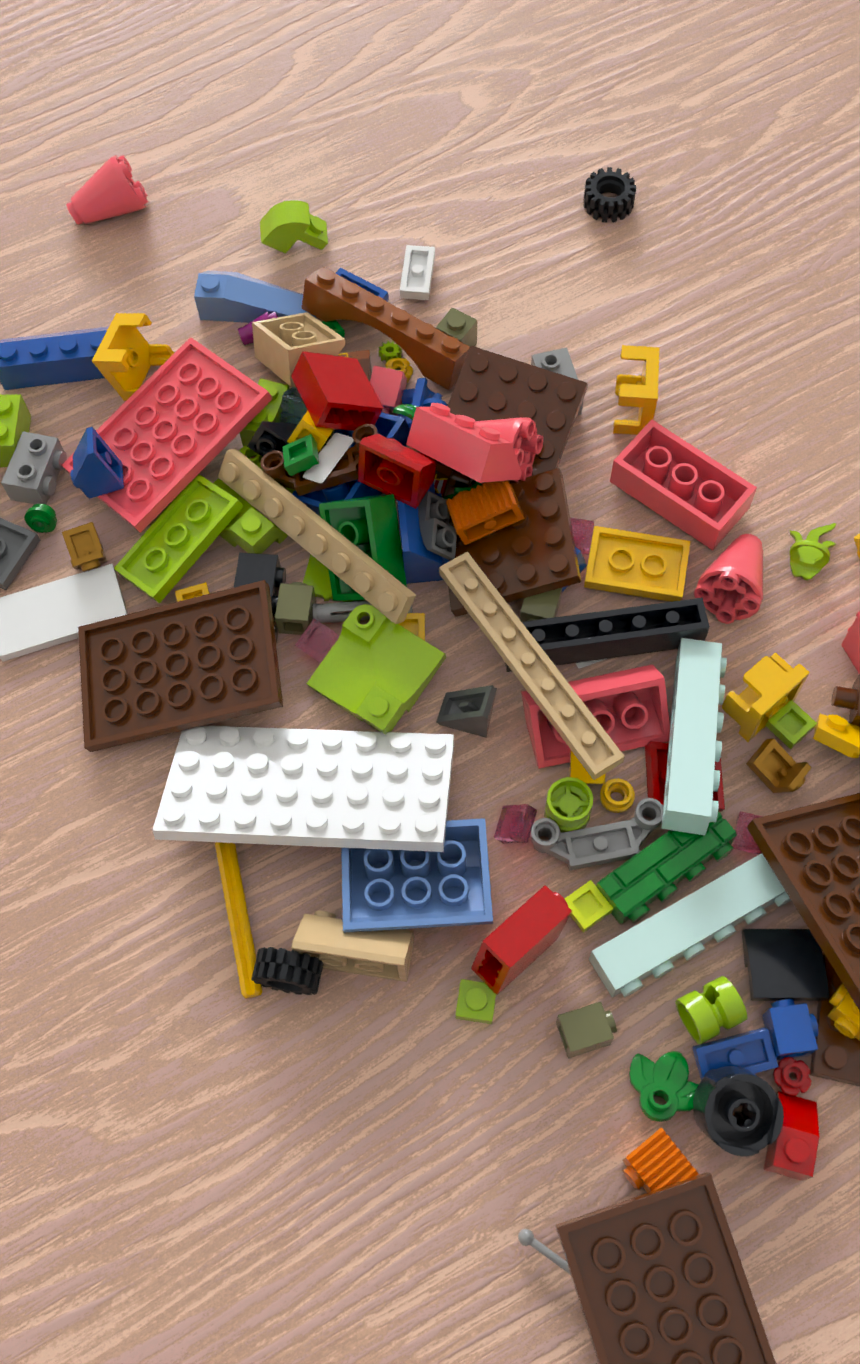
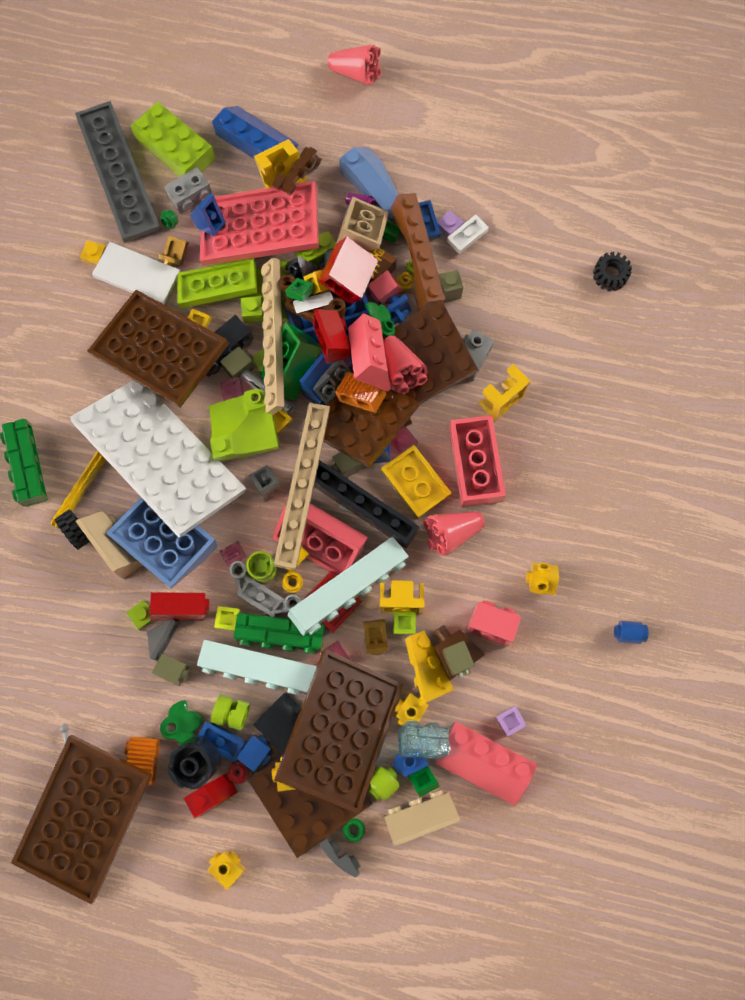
camera: 40 degrees right, 10 degrees up
(133, 952) = (23, 462): none -> green brick
(161, 333) = (307, 160): none -> reddish brown plate
(292, 222) = (428, 154): lime brick -> none
(386, 276) = (449, 223): none -> lavender plate
(529, 1007) = (160, 637): none -> dark grey slope
(808, 555) = (503, 551): lime piece -> none

